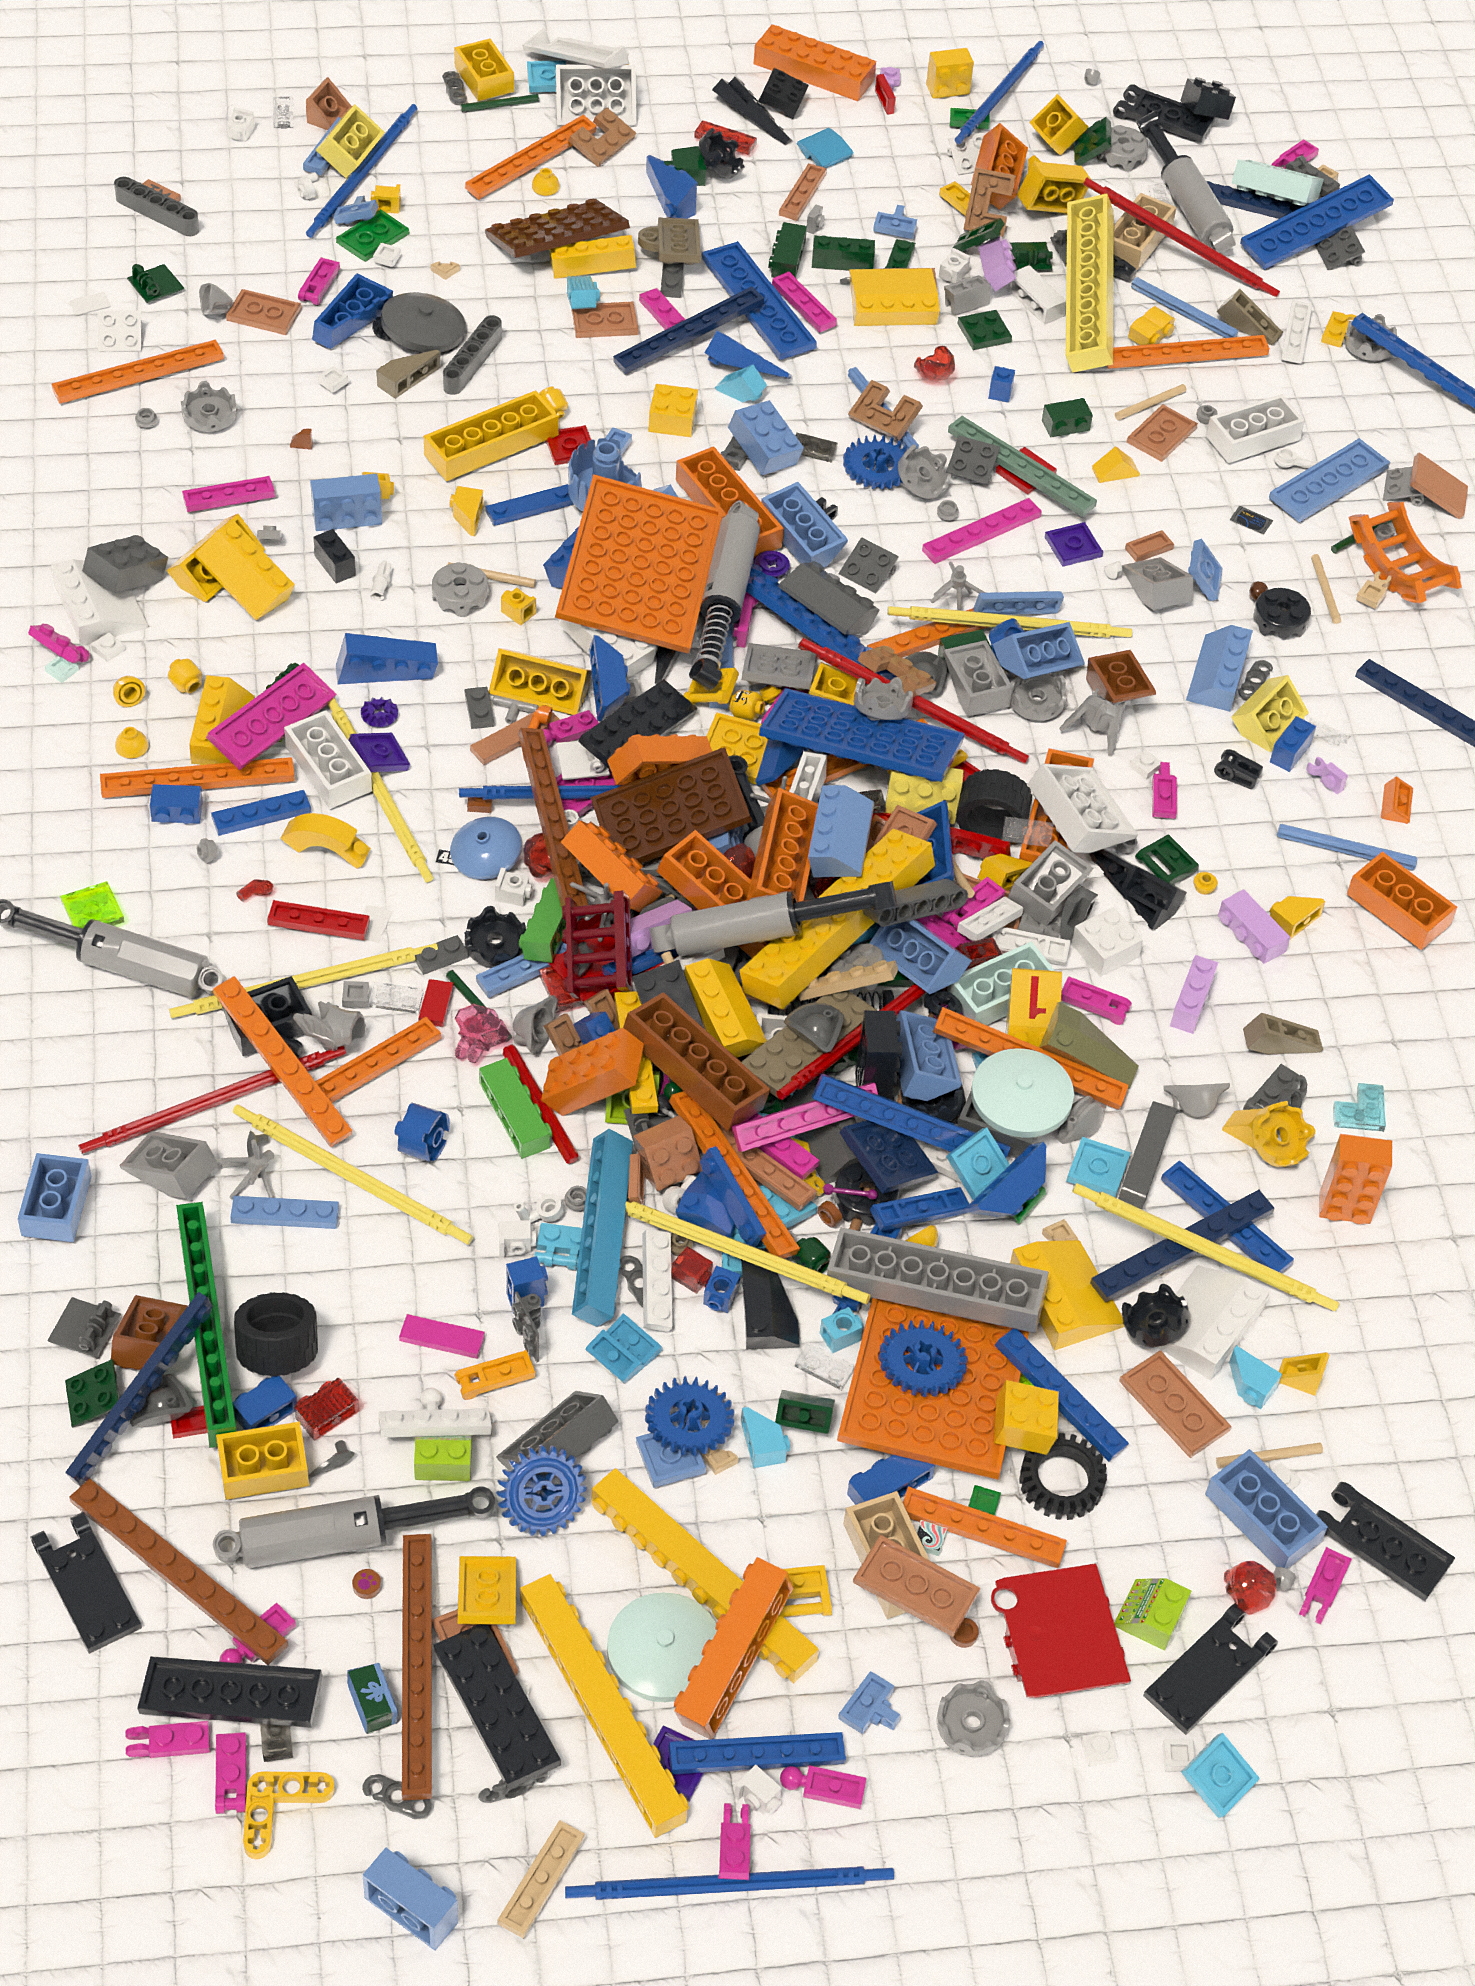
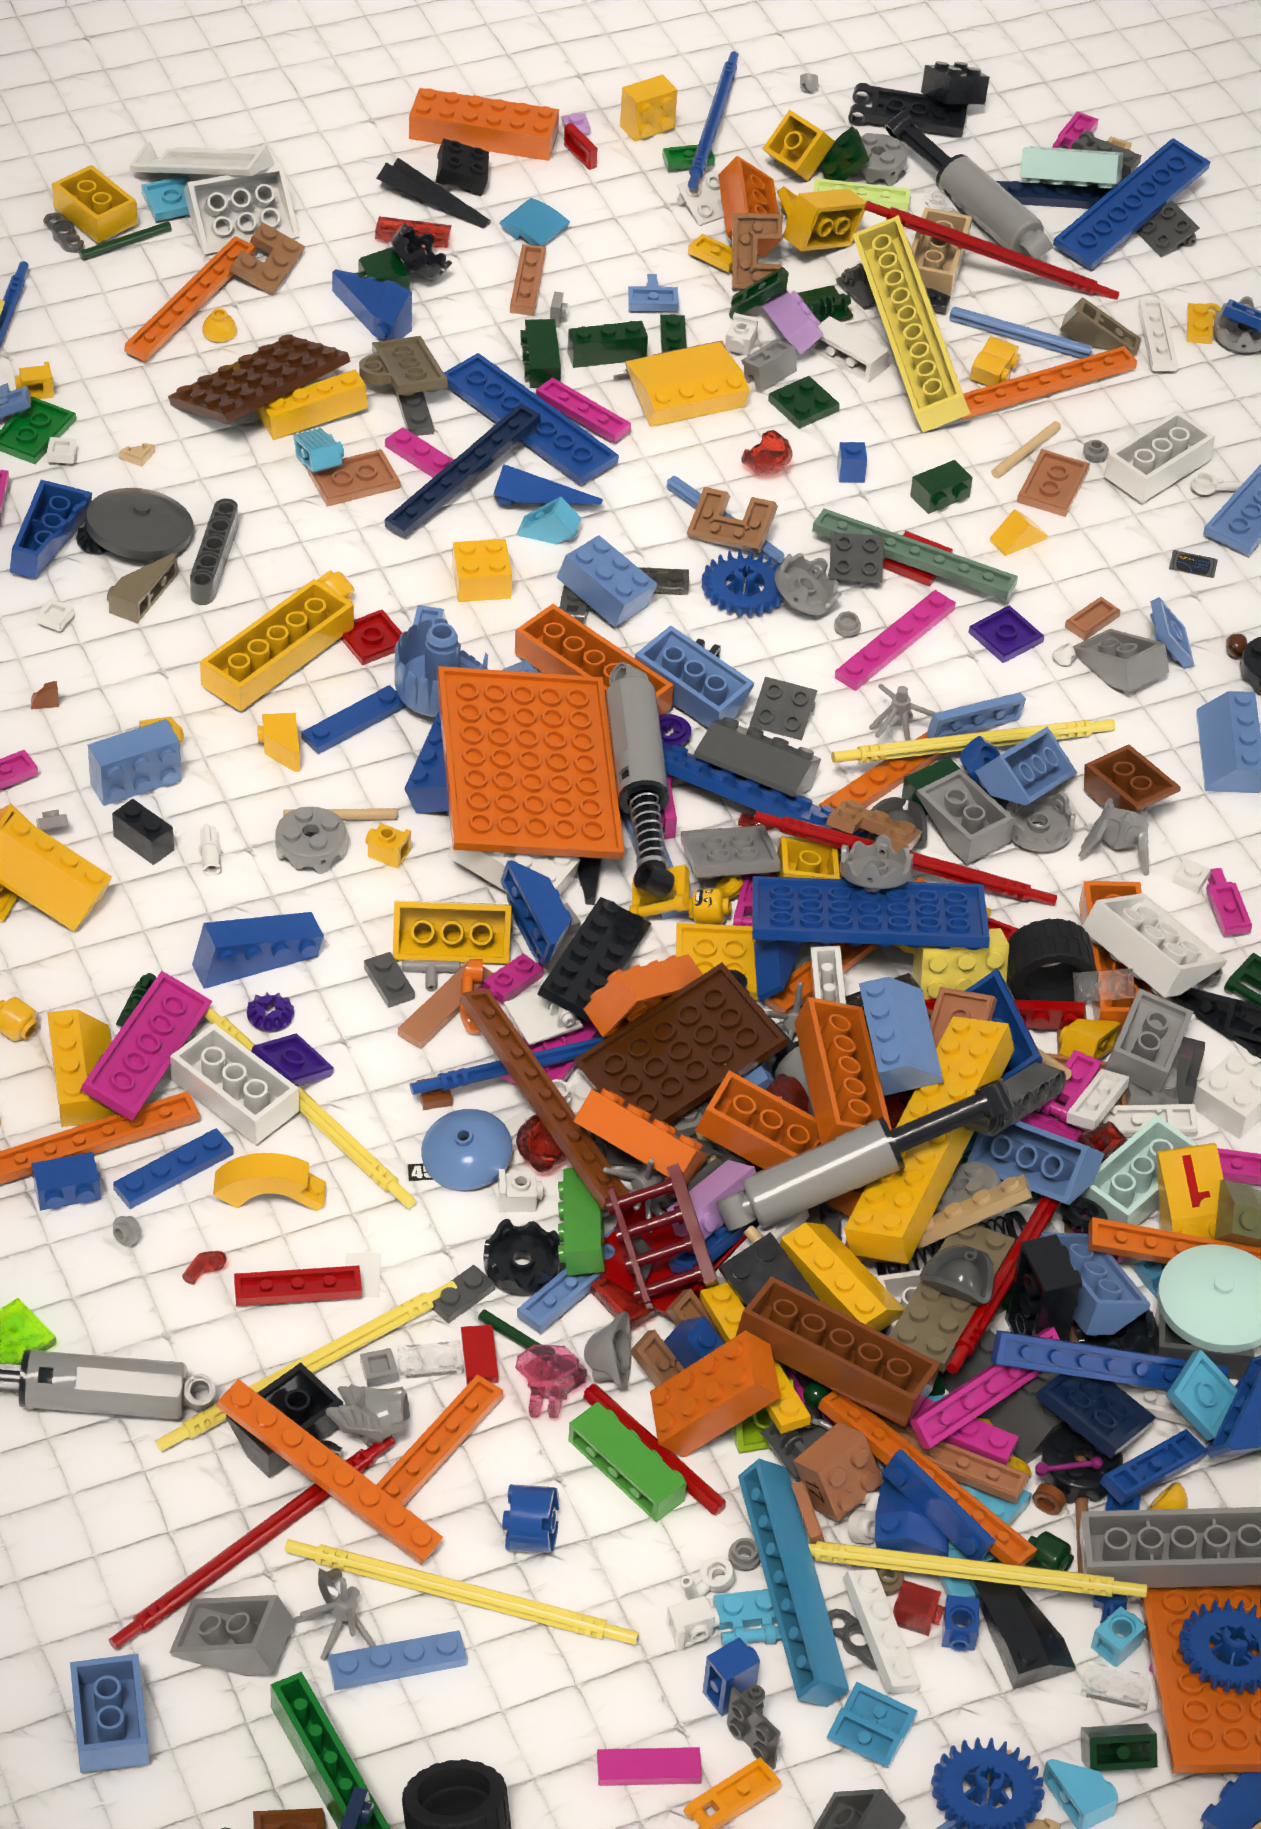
camera: 15 degrees left, 5 degrees down
(1104, 175) = (880, 195): none -> yellowish green plate

